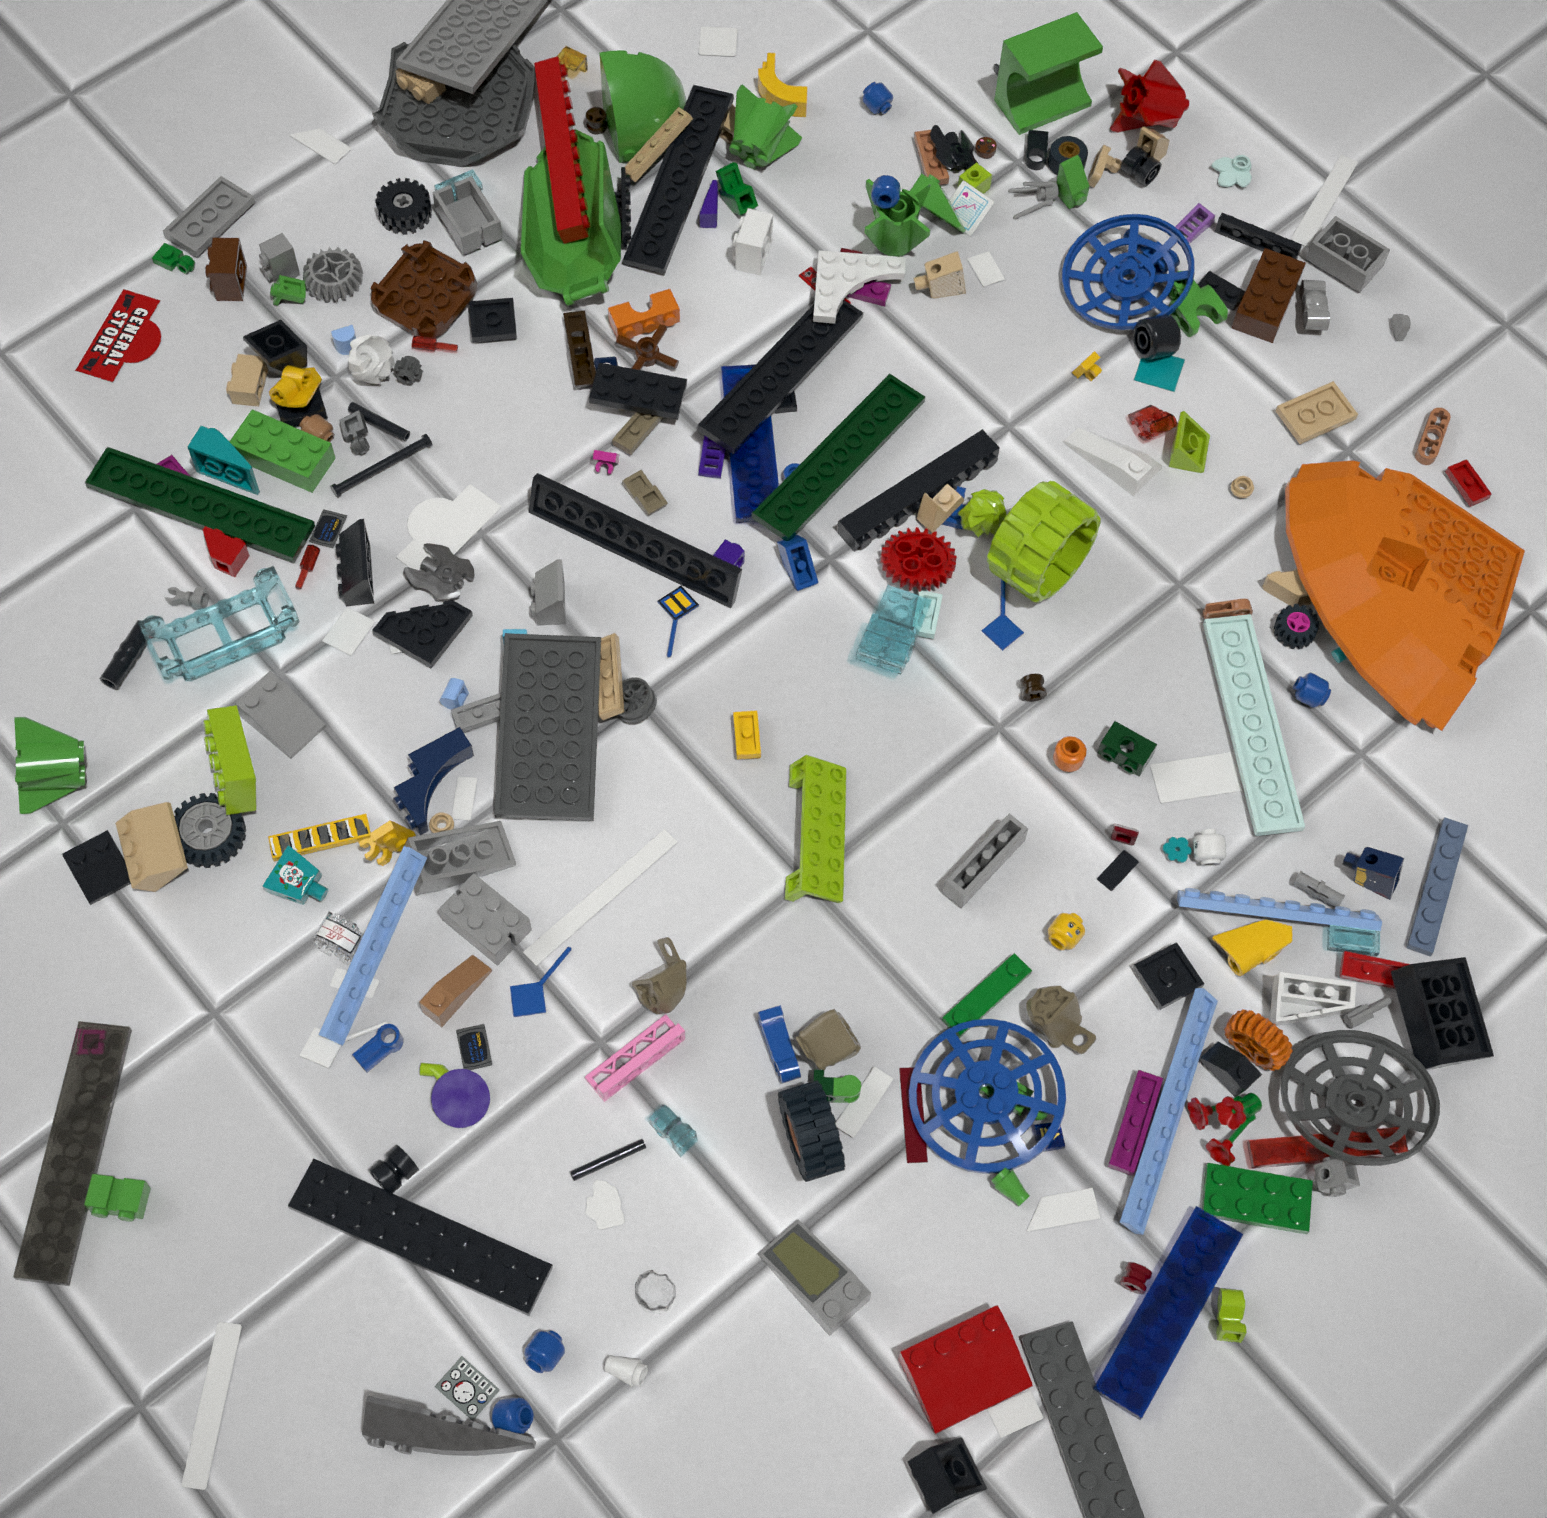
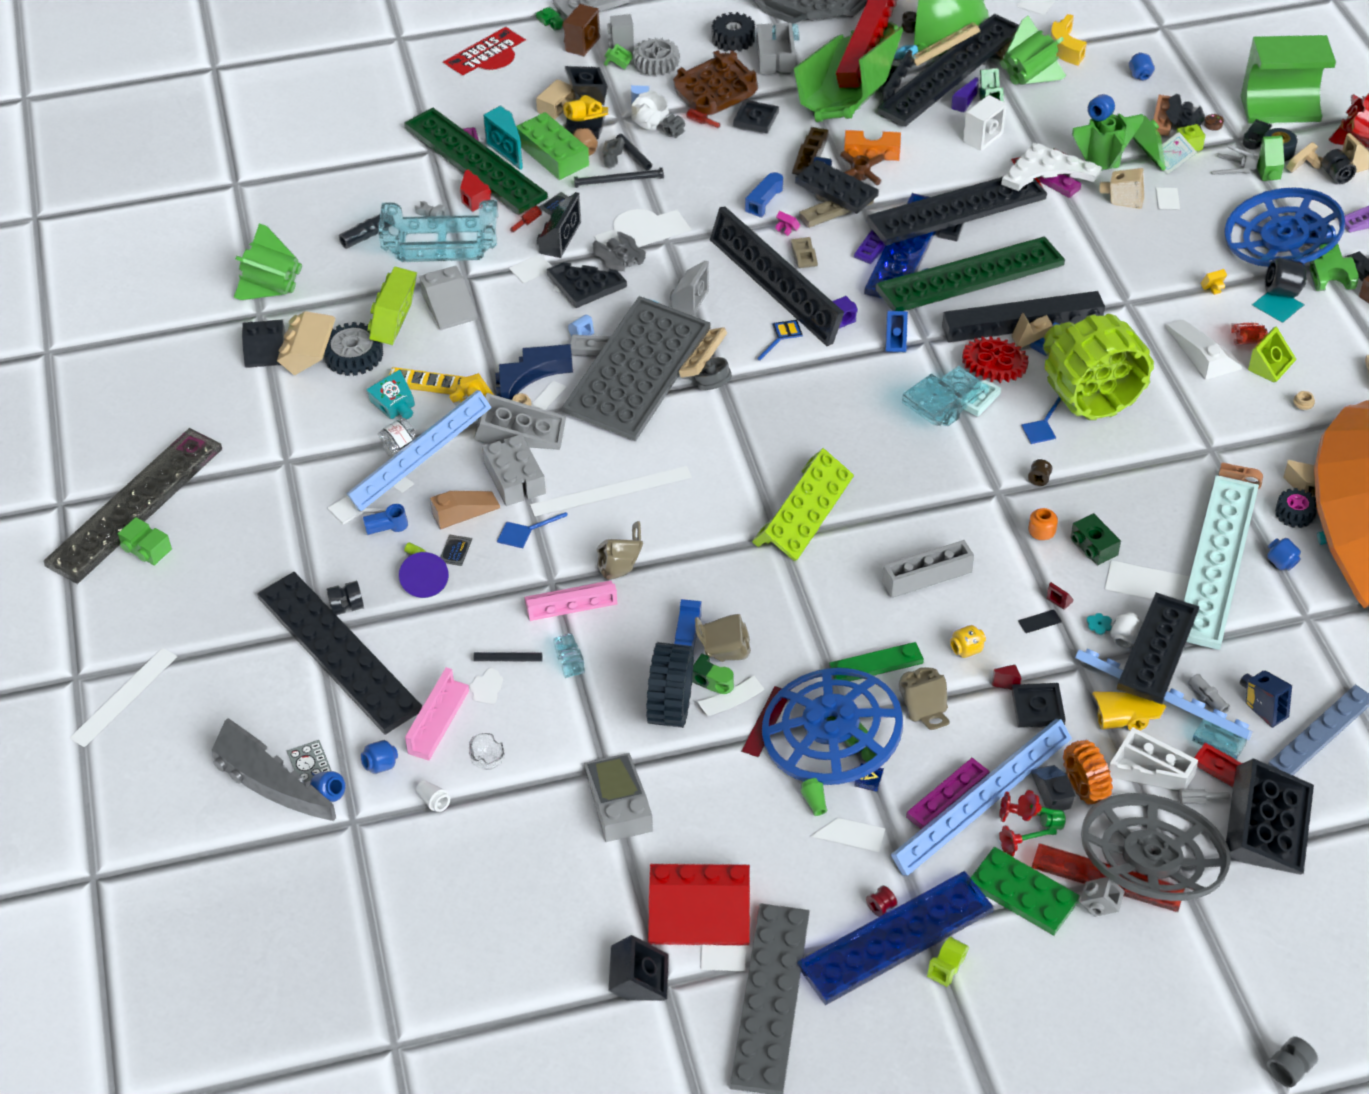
camera: 30 degrees right, 15 degrees down
(561, 412) = (763, 193): none -> blue leg
(576, 1271) = (436, 716): none -> bright pink fence
(615, 164) = (900, 53): none -> medium azure tile
(747, 734) = (787, 426): yellow plate -> none
(1125, 957) = (1006, 676): none -> dark red slope
(1256, 863) = (1158, 648): none -> black plate

